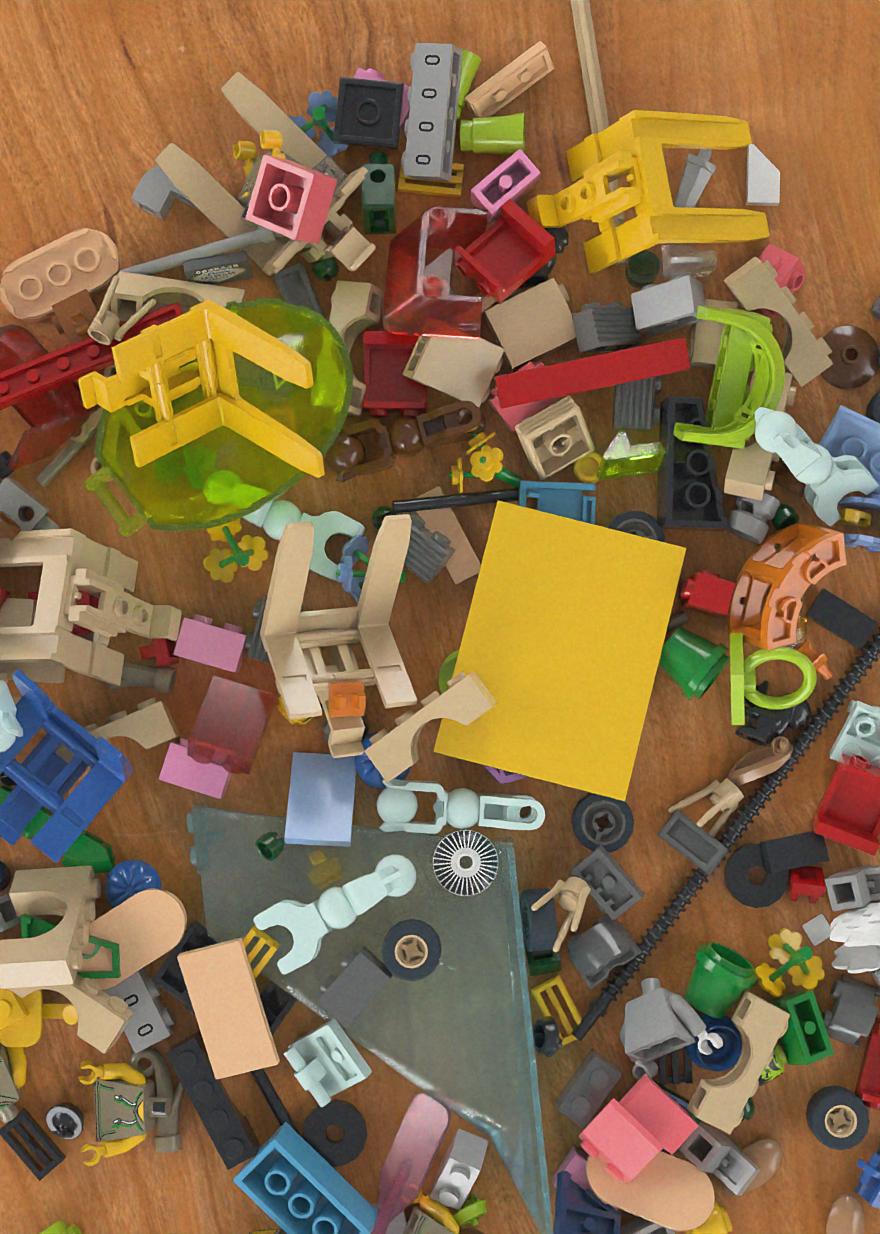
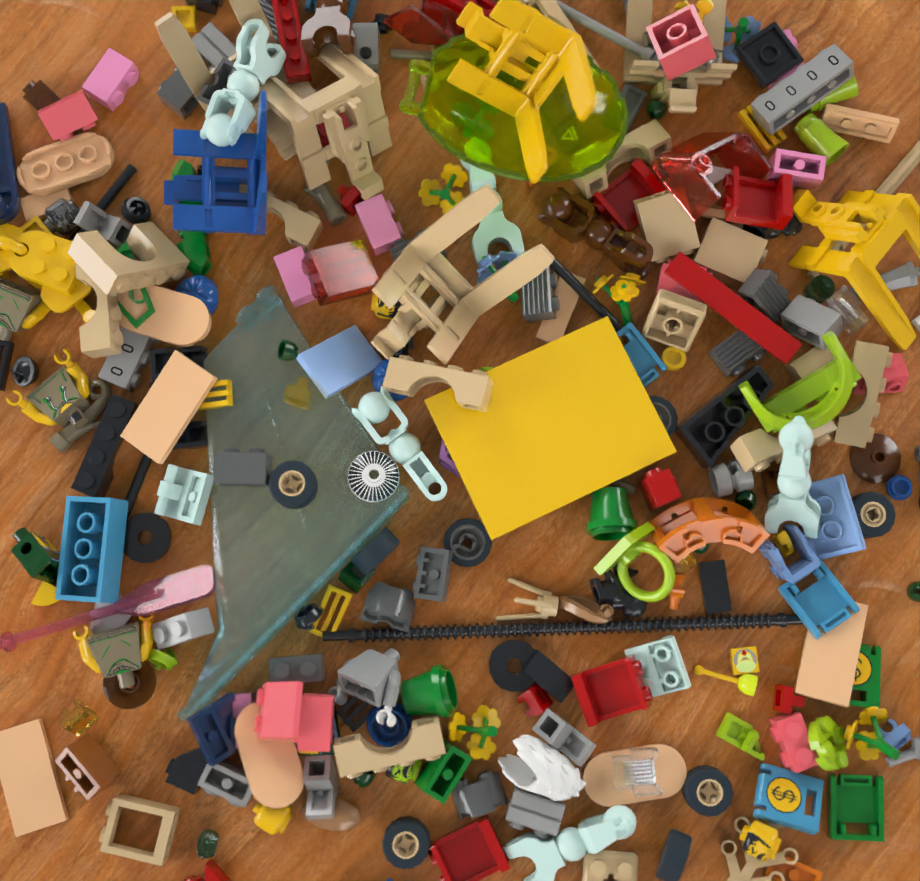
camera: 50 degrees right, 5 degrees down
(218, 268) = (603, 49): dark grey tile -> none
(335, 908) = (280, 418): light aqua piece -> none
(346, 699) = (412, 320): orange tile -> none
(379, 196) = (730, 97): dark green torso -> none
(571, 898) = (405, 559): tan plant -> none
(627, 460) = (696, 372): clear neon green slope -> none
(693, 842) = (501, 608): dark grey tile -> none
(817, 929) = (512, 732): white sticker -> none

